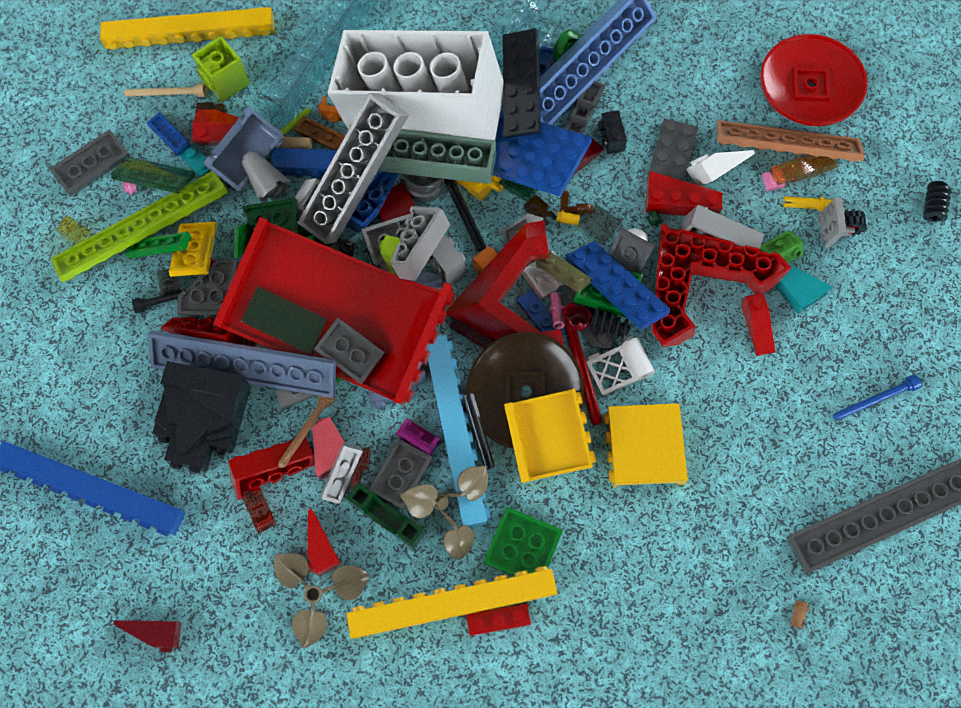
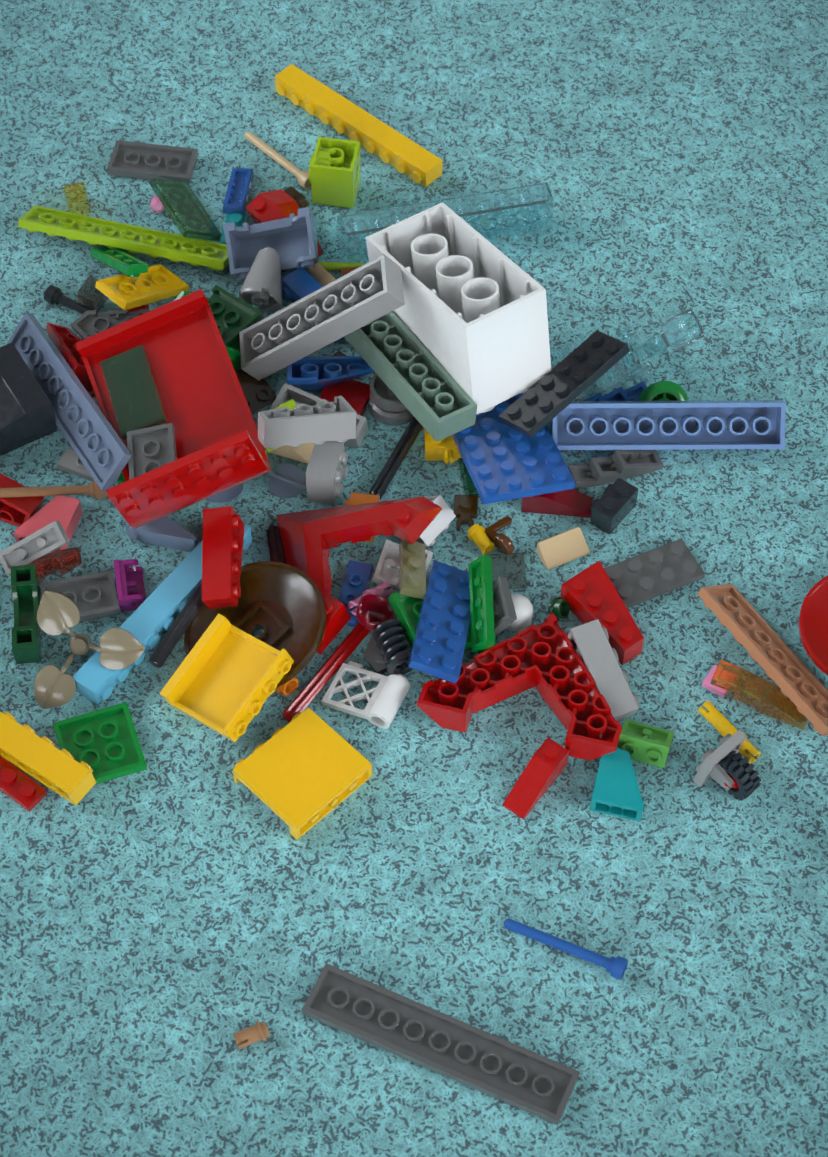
camera: 45 degrees right, 15 degrees down
(468, 373) = (221, 557): none -> red wedge
(614, 182) = (562, 548): none -> tan slope
(625, 255) = (481, 604): none -> green plate
(708, 168) = (668, 611): white slope -> none

